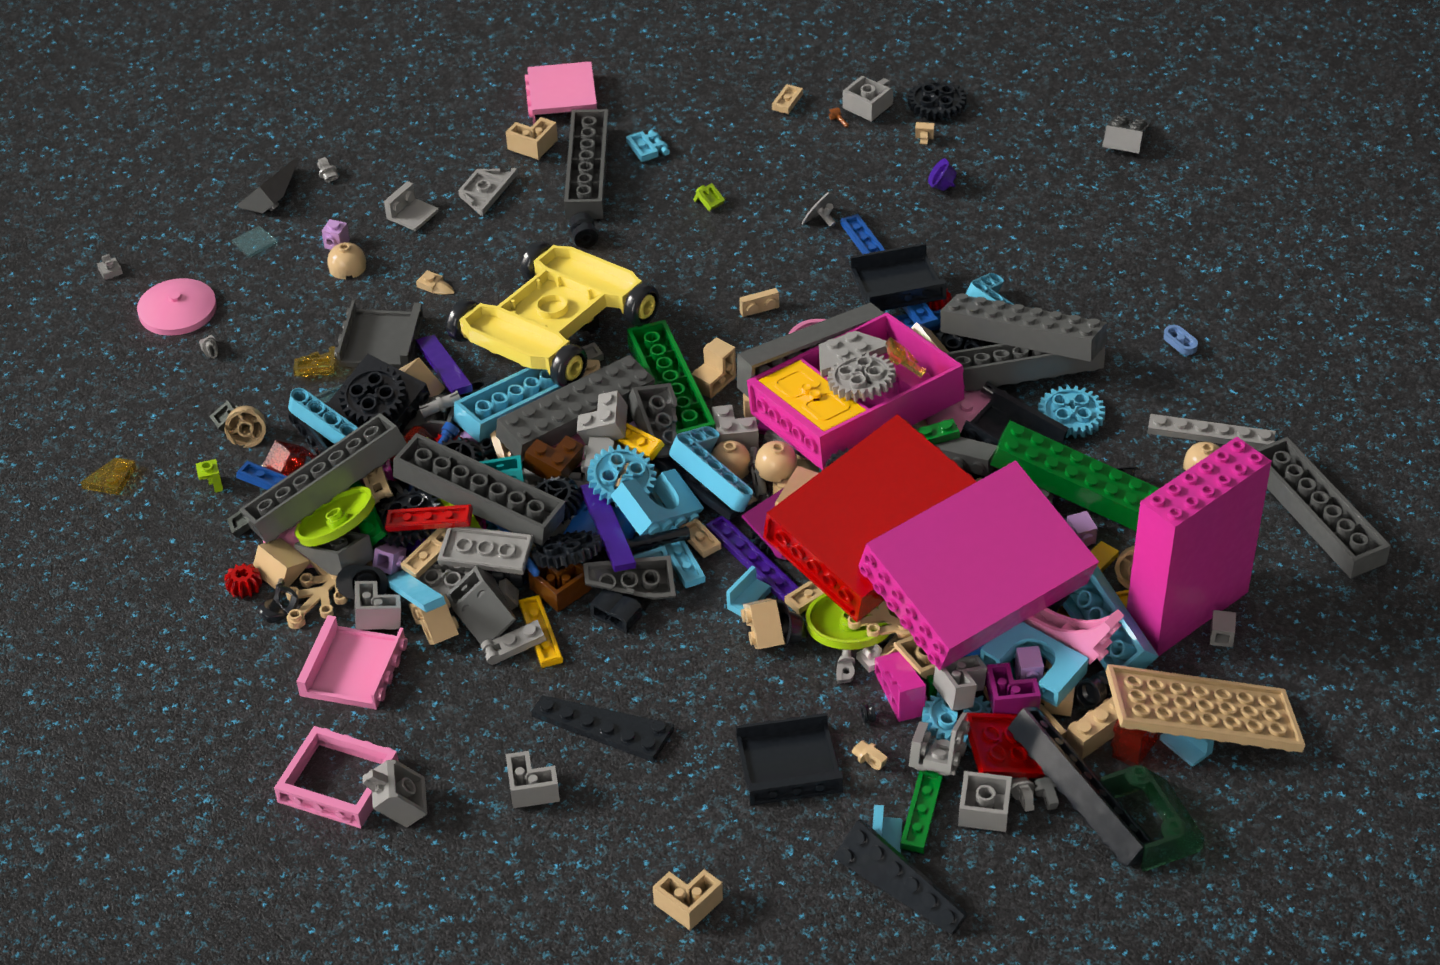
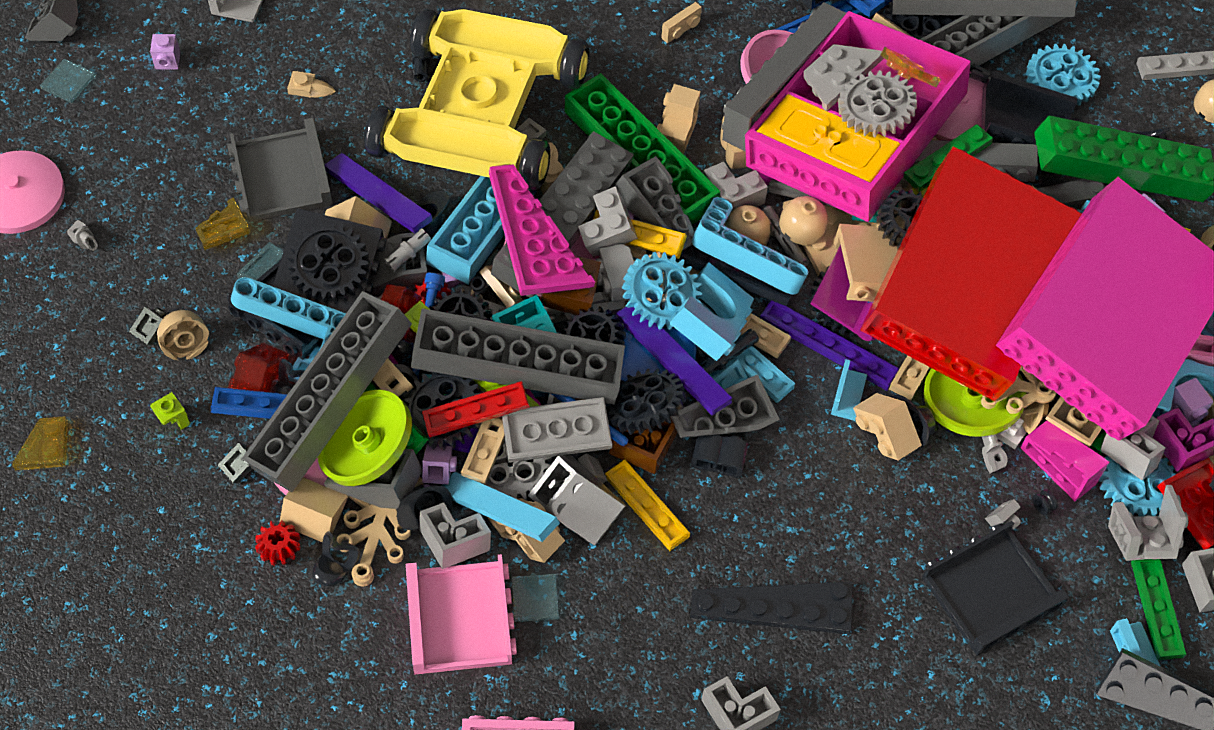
camera: 25 degrees left, 15 degrees up
(346, 260) = (193, 81): tan cylinder -> none
(418, 670) = (535, 598): none -> clear light blue piece
(513, 642) = (628, 530): light grey plate -> none
(532, 414) = (534, 241): none -> dark pink wing
(830, 707) = (1004, 514): none -> light grey tile
(870, 754) = (1075, 555): tan piece -> none

